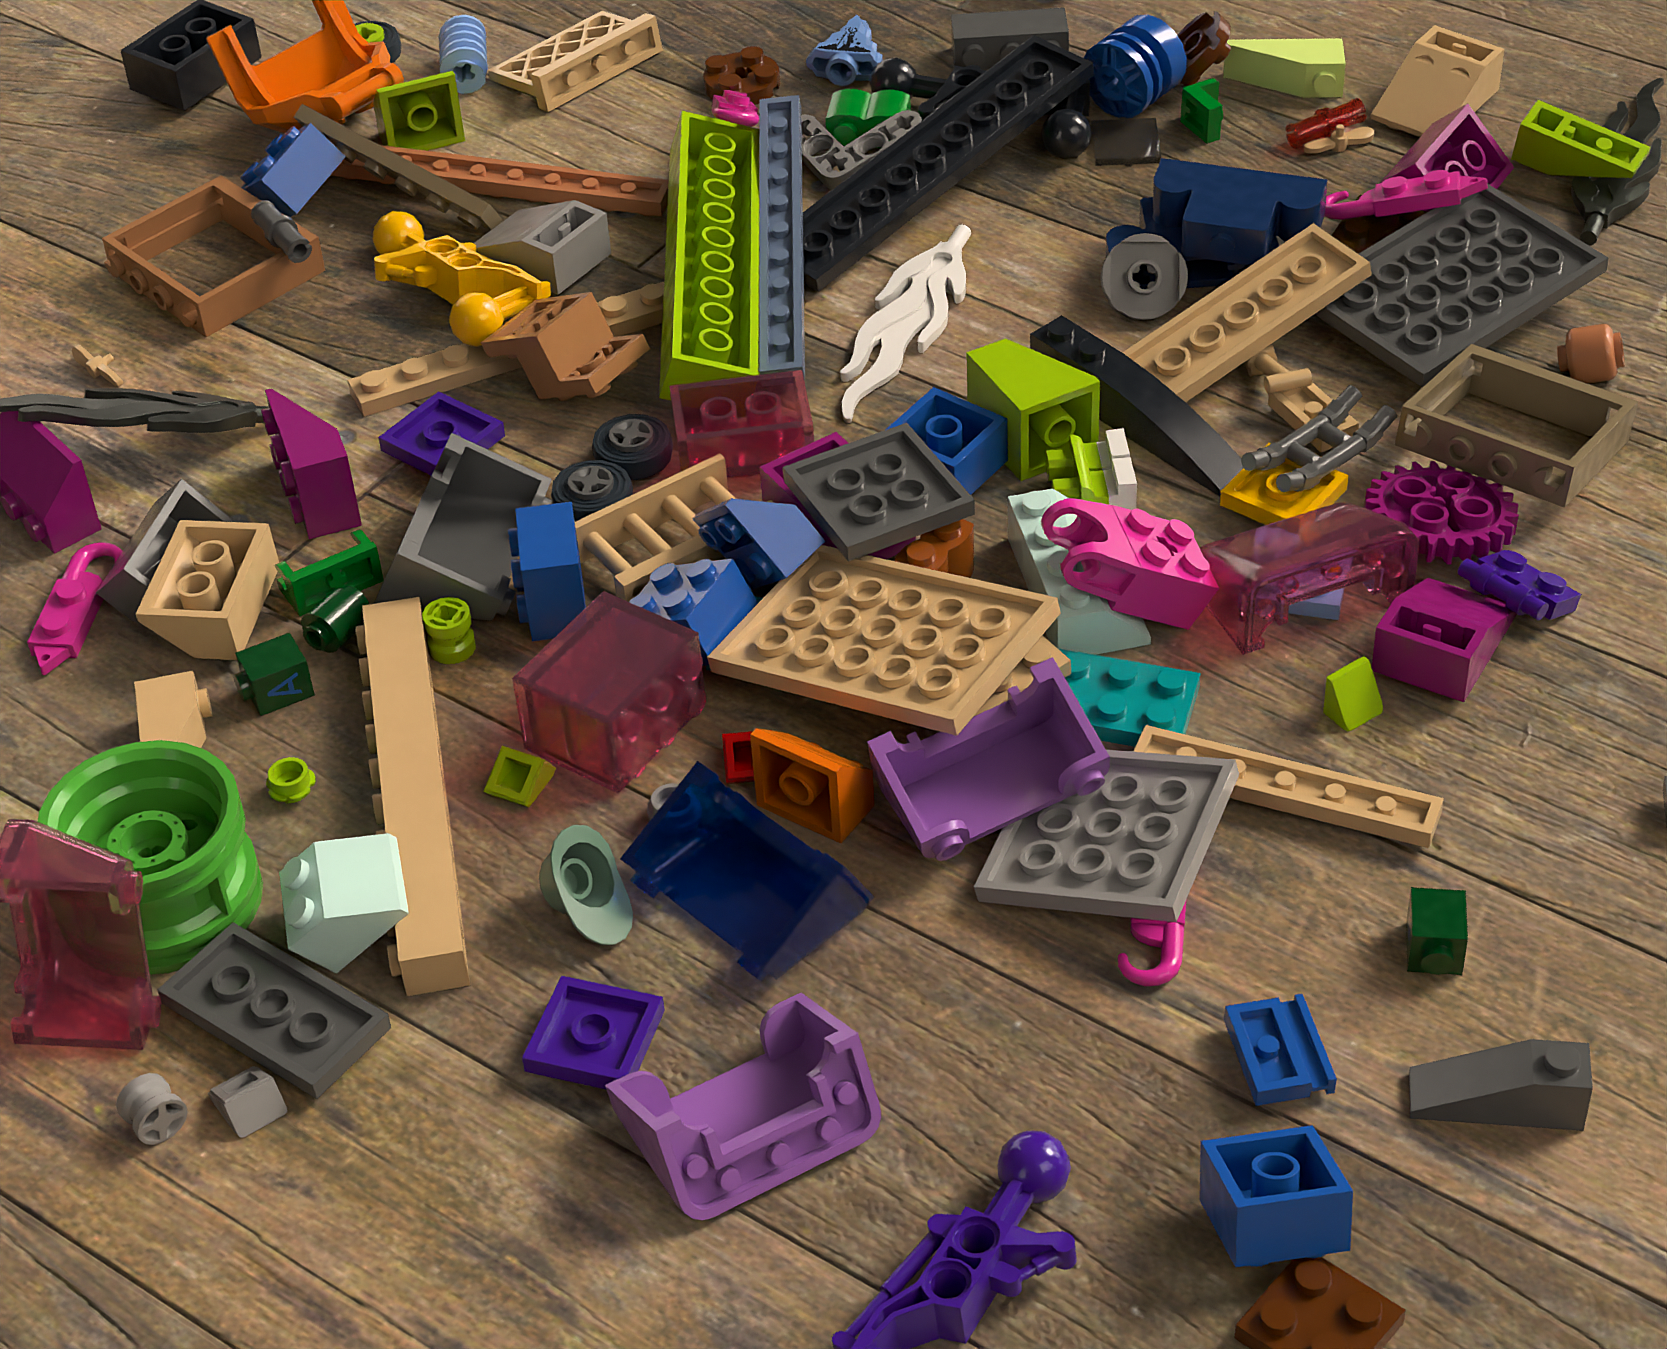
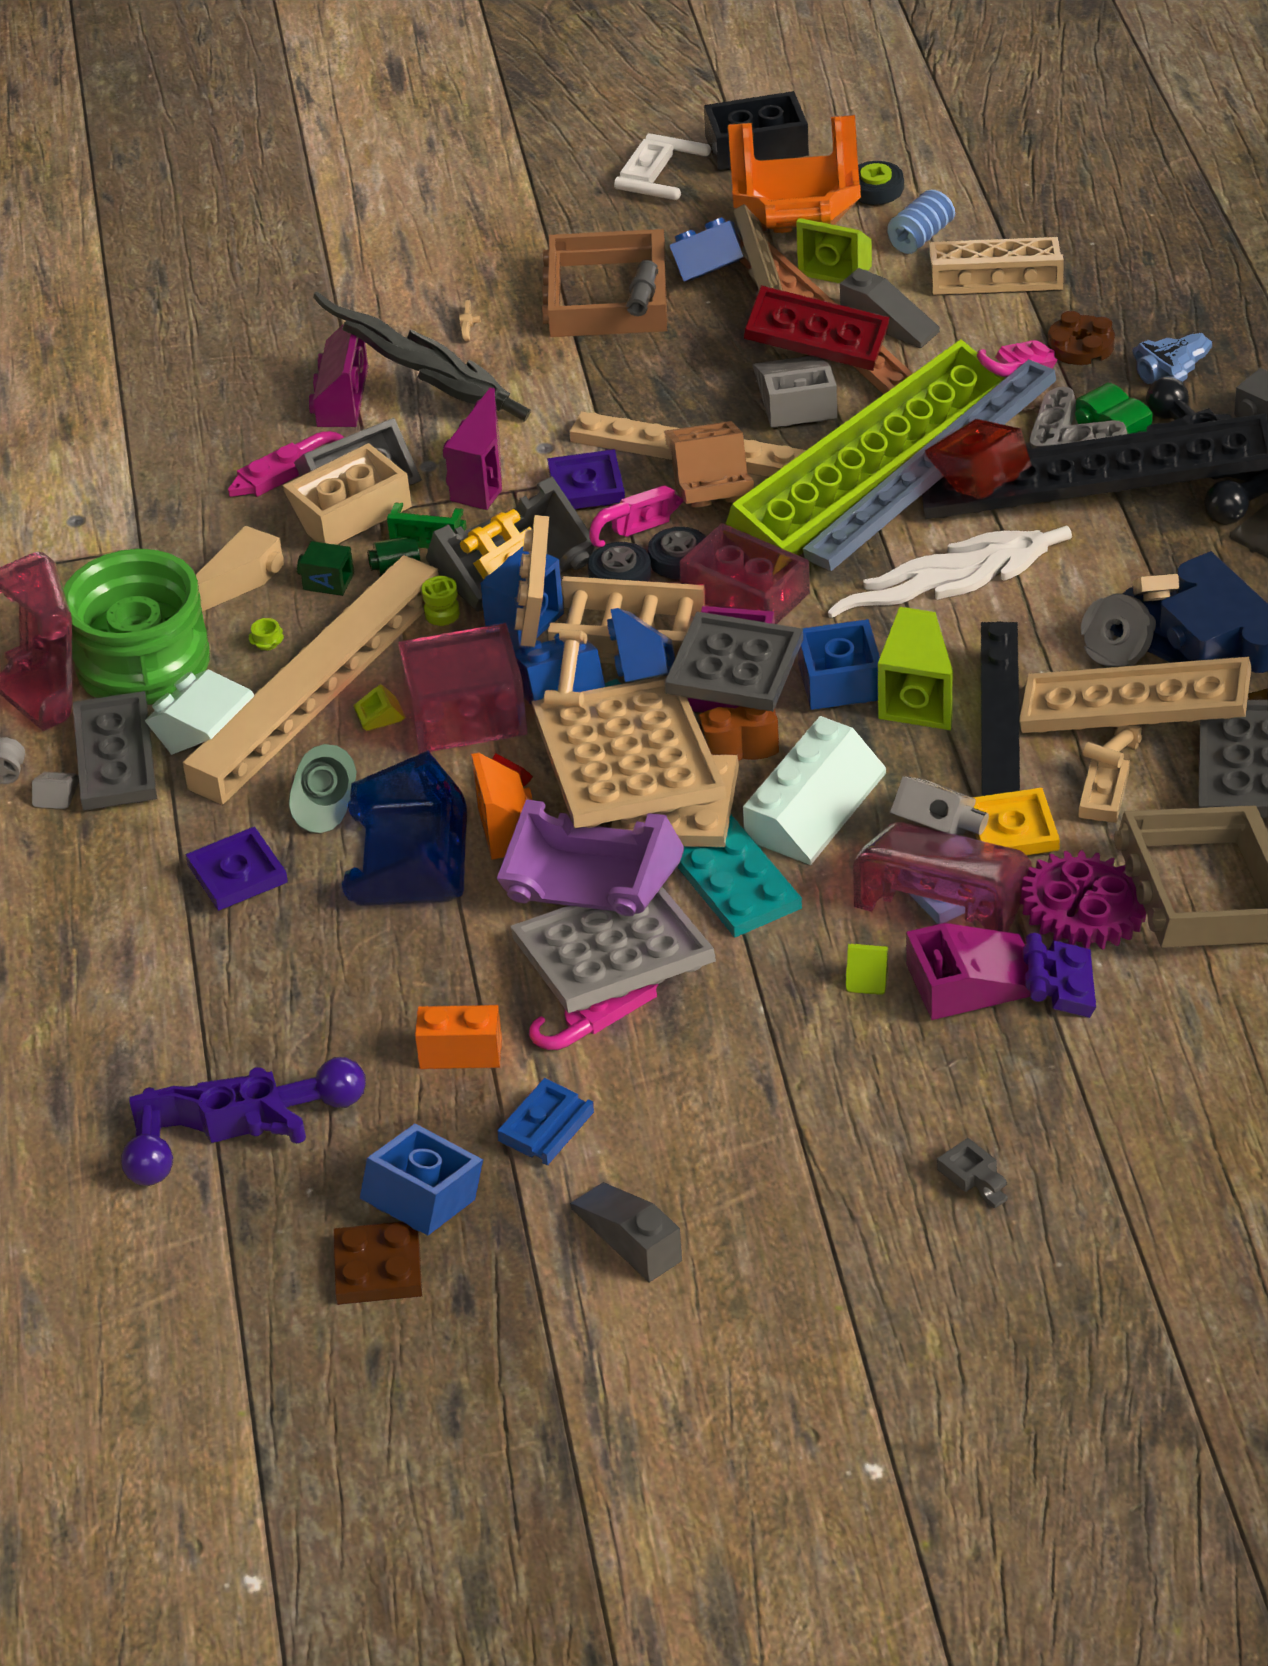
camera: 45 degrees right, 0 degrees up
(107, 139) = (650, 160): none -> white plate
(473, 546) = (481, 540): none -> yellow plate
(477, 286) = (720, 367): yellow piece -> none
(512, 177) = (816, 328): none -> dark red plate
(533, 138) = (878, 296): none -> dark grey slope
(554, 431) = (636, 513): none -> dark pink plate
(608, 524) = (531, 591): none -> tan plate
(744, 626) = (565, 694): none -> tan piece
(759, 1119) = (243, 967): medium lavender windscreen -> none
(833, 198) = (980, 457): none -> clear red slope
(1084, 1029) = (458, 1037): none -> orange brick
(1095, 470) = (911, 741): hips -> none
(1133, 560) = (826, 797): dark pink brick -> none
(1161, 208) = (1156, 587): none -> tan plate
(1226, 507) = (928, 805): none -> light grey torso
(1312, 790) = (757, 996): tan plate -> none
(1325, 429) = (1042, 796): dark grey piece -> none
(1436, 931) = (712, 1124): dark green brick -> none

